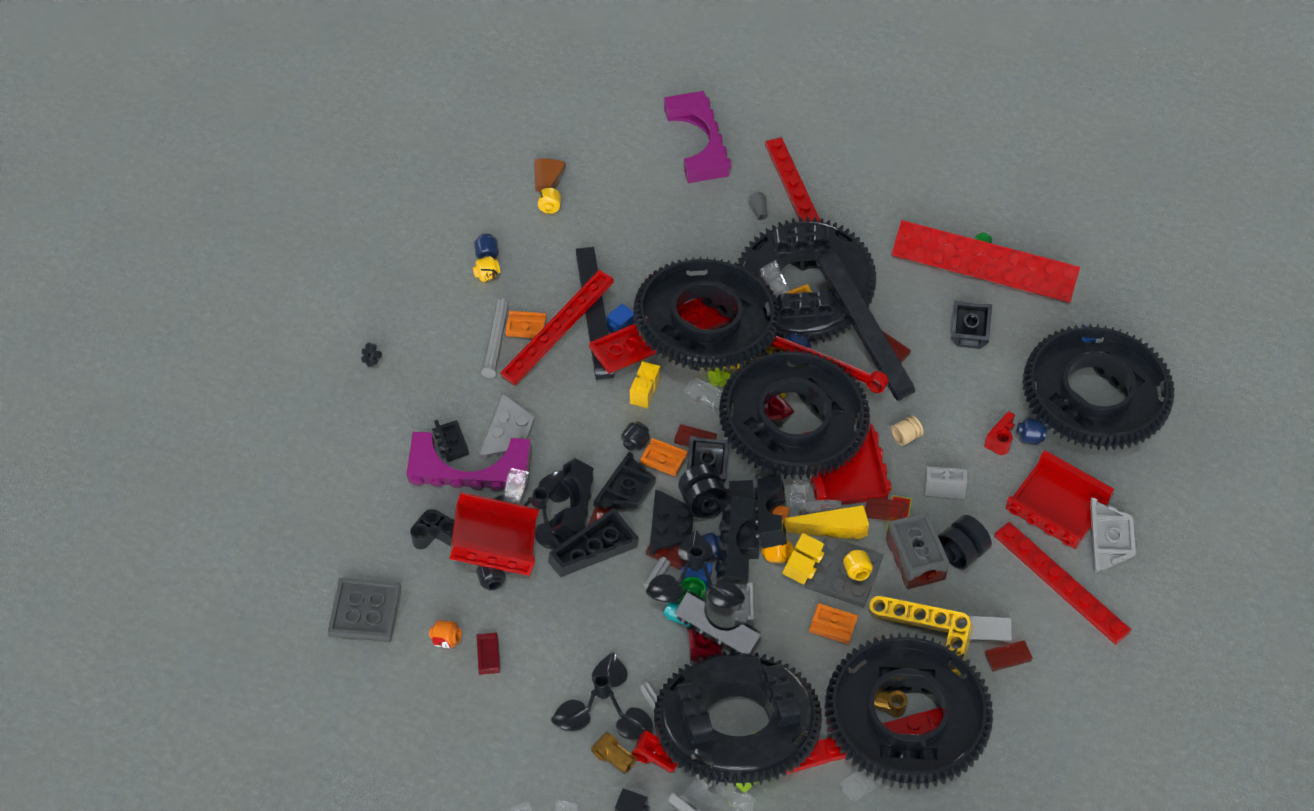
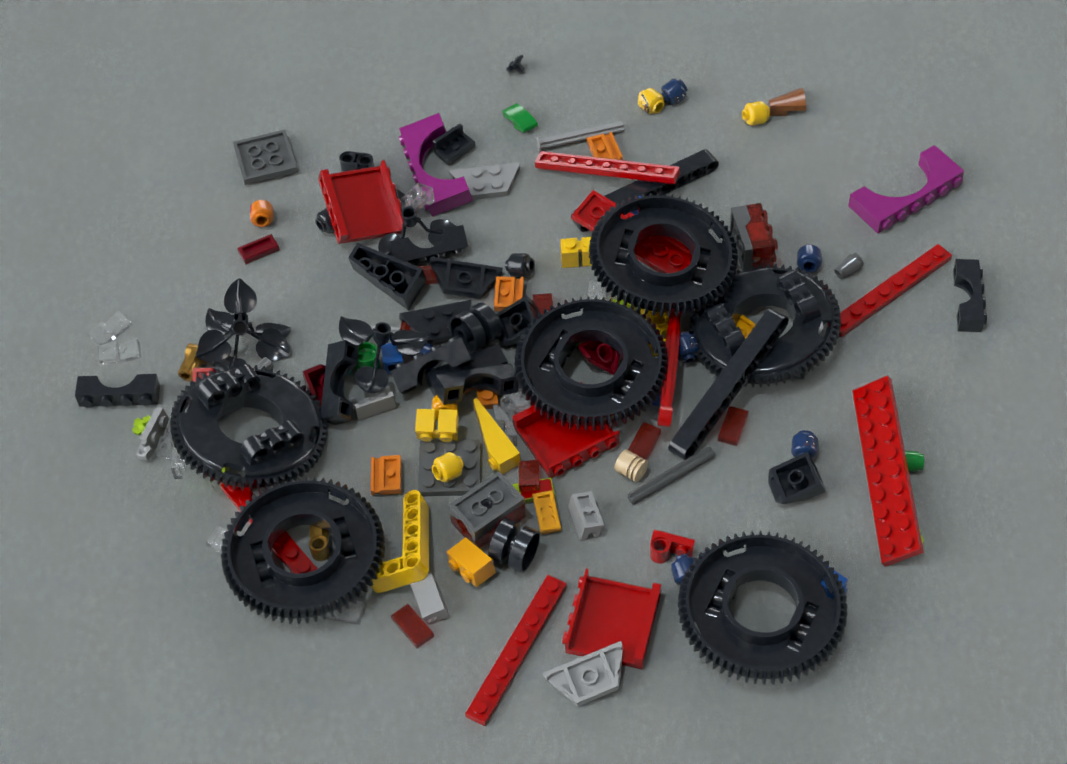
camera: 70 degrees right, 0 degrees up
(449, 374) = (520, 117): none -> green slope
(626, 676) = (241, 298): none -> black plant
(703, 244) = (753, 236): none -> piece
(739, 227) = (809, 258): none -> dark blue head
(773, 276) = (737, 295): clear slope -> none
(813, 136) = (970, 314): none -> black arch
(882, 415) = (645, 440): none -> clear red tile
(925, 409) = (670, 475): none -> dark grey axle
(937, 512) = (546, 512): none -> light orange plate
(938, 305) = (804, 442): none -> dark blue head
(964, 584) = (470, 562): none -> light orange brick

